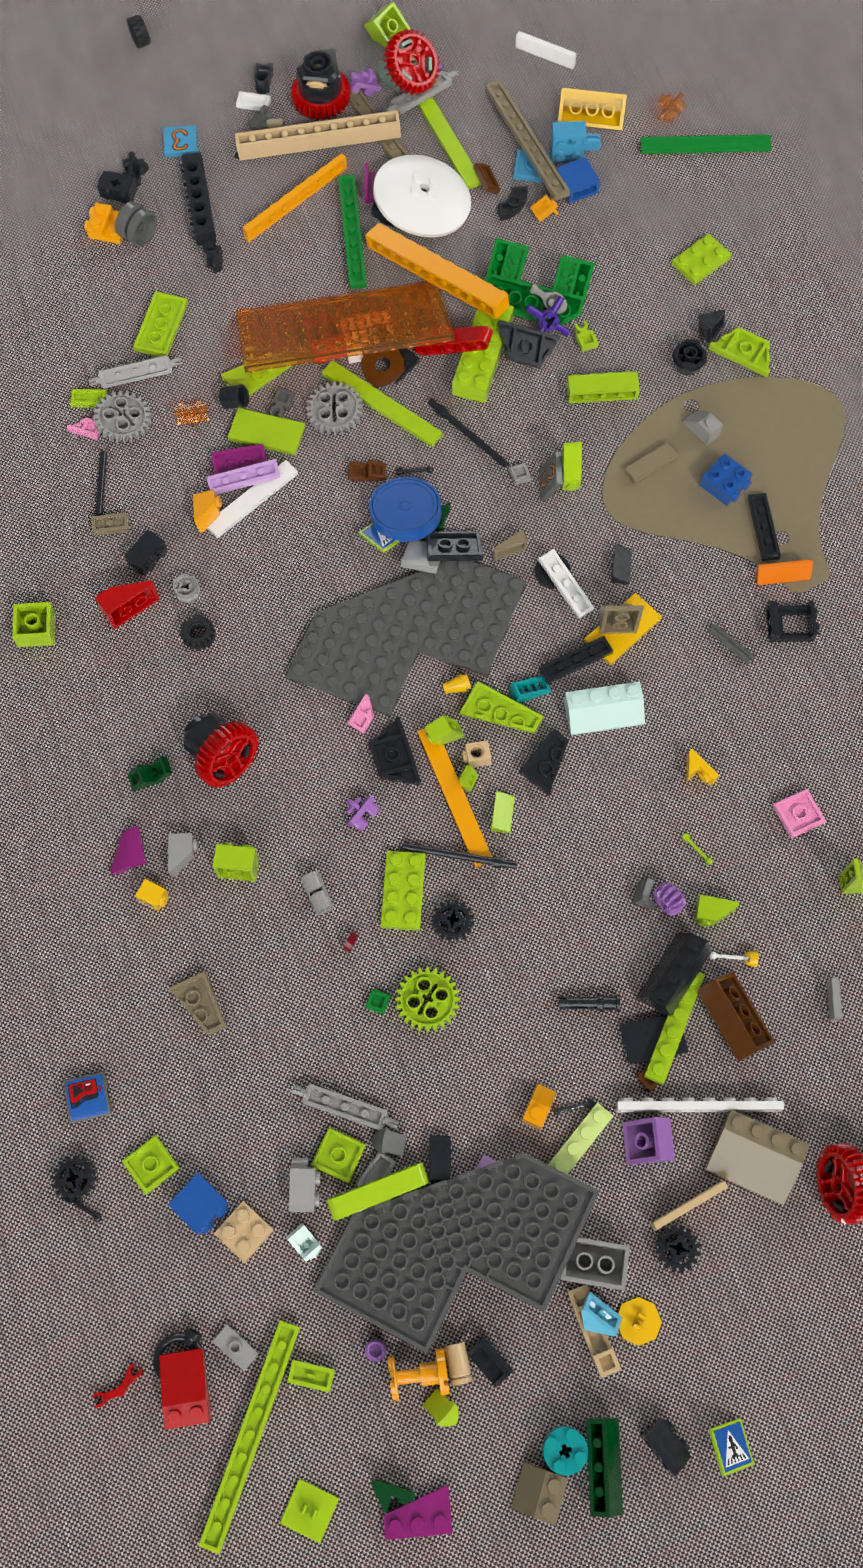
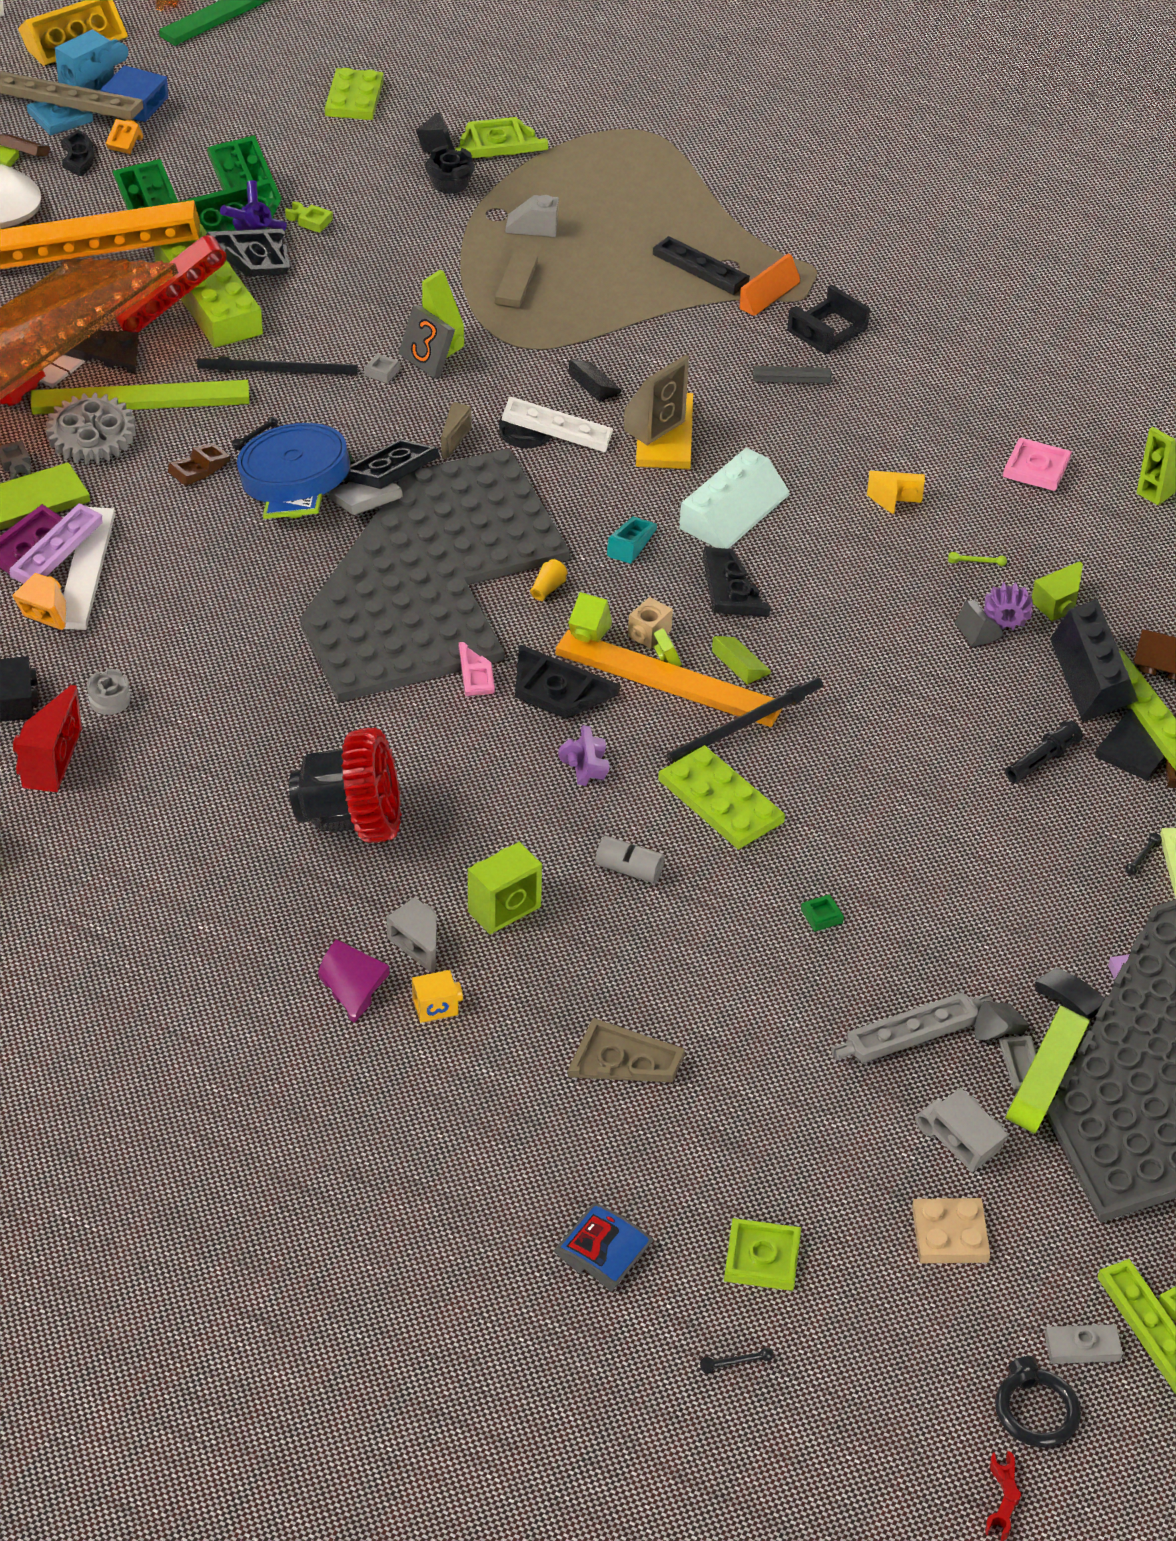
camera: 45 degrees left, 25 degrees down
(71, 1169) = (695, 1332): black gear -> none
(148, 775) = (288, 887): dark green slope -> none
(184, 1389) = (1084, 1418): red slope -> none
(193, 623) = (176, 735): black tyre -> none
(199, 1205) = (872, 1235): blue brick -> none
(304, 1242) = (1030, 1181): light aqua bracket -> none
(338, 1155) = (962, 1069): lime tile -> none
(351, 942) = (725, 877): dark red tile -> none
(378, 378) = (119, 348): reddish brown piece -> none
(443, 1007) = (856, 874): lime gear -> none
(444, 919) = (812, 781): black gear -> none
(499, 709) = (626, 571): lime wing -> none
(539, 1107) = (1113, 877): light orange slope -> none
(549, 298) = (233, 197): light grey piece -> none
(575, 660) = (651, 480): black tile -> none
(602, 387) = (383, 245): lime brick -> none
(726, 480) = (616, 246): blue brick -> none
(749, 958) = (1147, 607): hinge -> none

